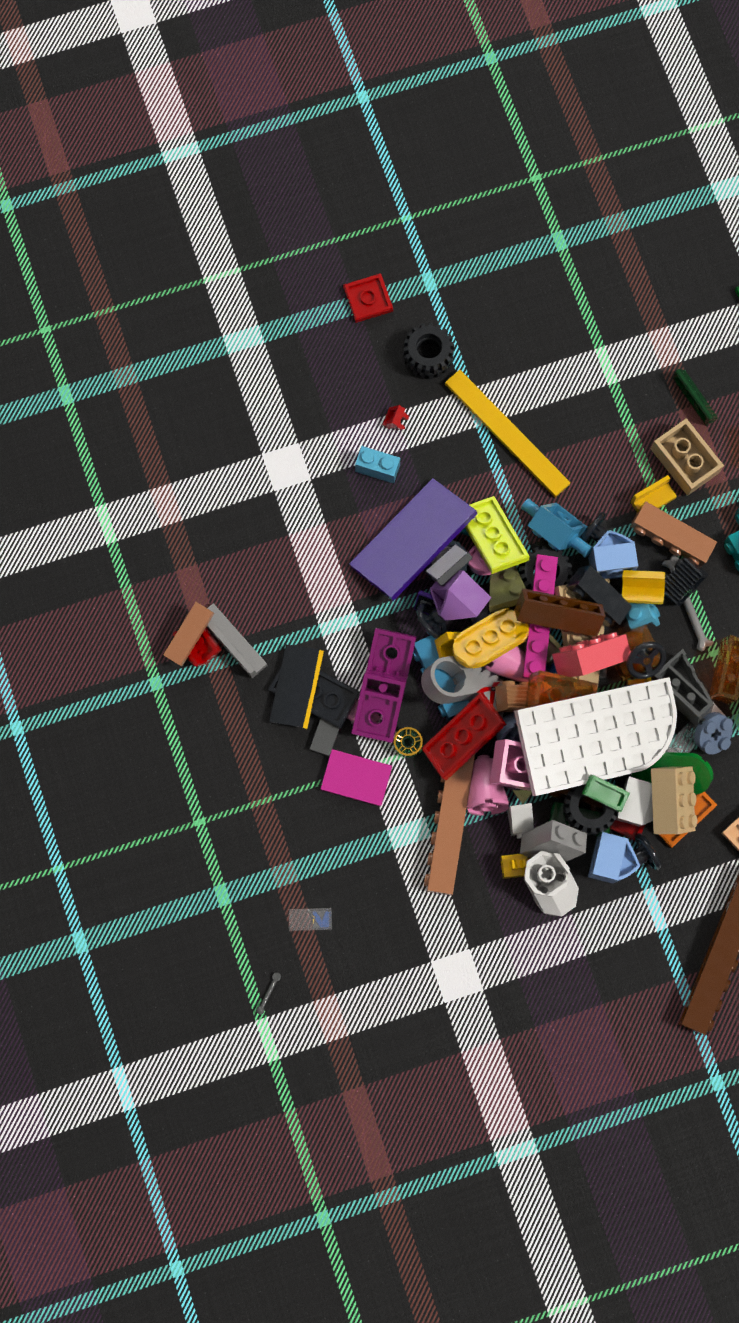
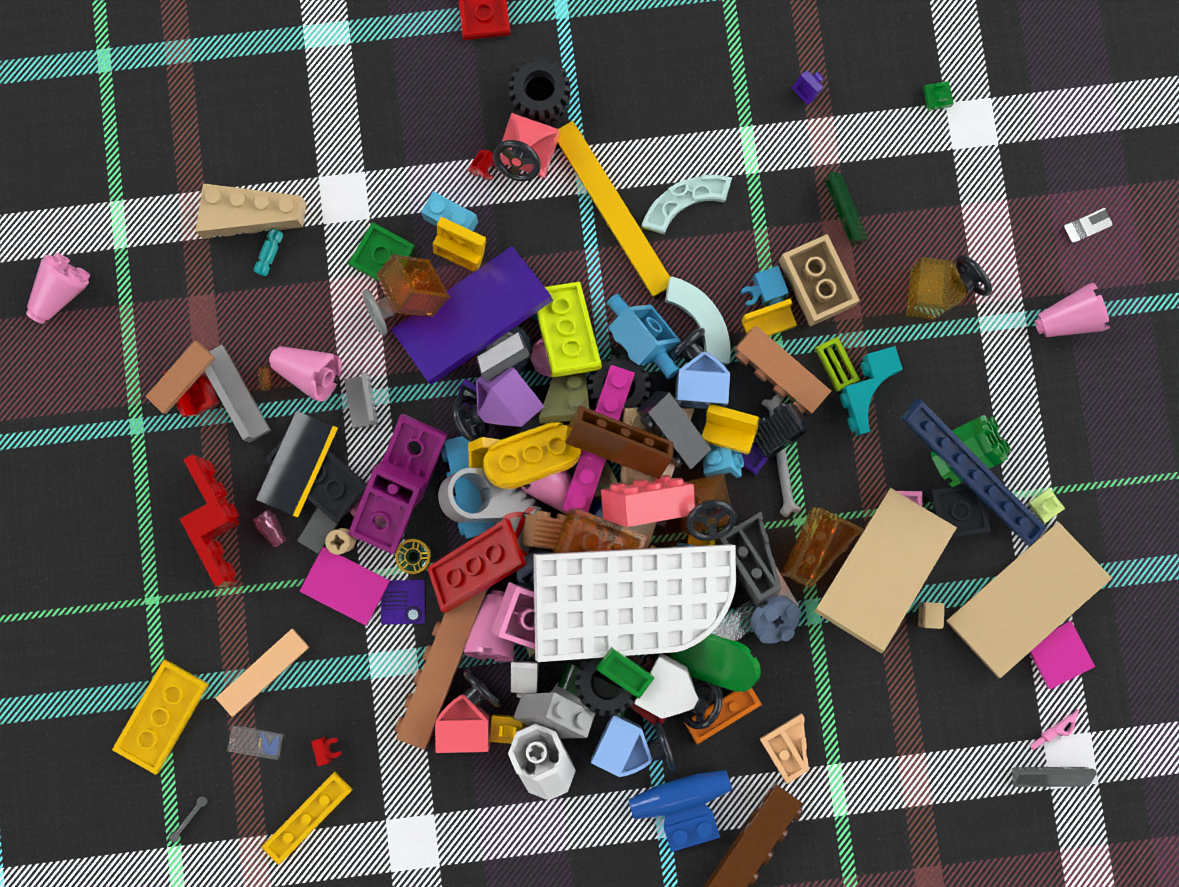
camera: 10 degrees right, 5 degrees up
(67, 583) = (54, 287): none -> bright pink cone
(212, 491) = (241, 210): none -> tan wedge
(227, 914) = (160, 717): none -> yellow tile
(234, 522) = (268, 252): none -> teal axle
(238, 744) = (210, 521): none -> red bracket
(254, 623) = (264, 378): none -> clear orange tile
(285, 743) = (269, 528): none -> clear pink cone
(288, 608) = (307, 370): none -> bright pink cone
(304, 861) = (262, 672): none -> light nougat tile
(327, 506) = (376, 250): none -> green tile
(337, 626) = (361, 401): none -> light grey panel
(349, 740) = (345, 540): none -> tan wheel
(358, 527) = (409, 289): none -> clear orange piece
(366, 972) = (306, 818): none -> yellow tile
(368, 913) = (322, 750): none -> red tile
(391, 485) = (459, 244): none -> yellow slope
(406, 782) = (403, 602): none -> dark purple sticker
(429, 397) = (526, 147): none -> piece
(480, 866) = (463, 723): none -> coral piece
(561, 411) = (683, 195): none -> light aqua tile
(600, 500) = (706, 315): none -> light aqua tile
(643, 306) = (808, 86): none -> dark purple tile
(647, 470) = (768, 287): none -> dark azure brick
(666, 610) = (754, 460): none -> dark purple tile
(673, 800) = (705, 696): tan brick -> none
(673, 899) = (684, 806): none -> blue plate
(710, 526) = (827, 345): none -> lime tile

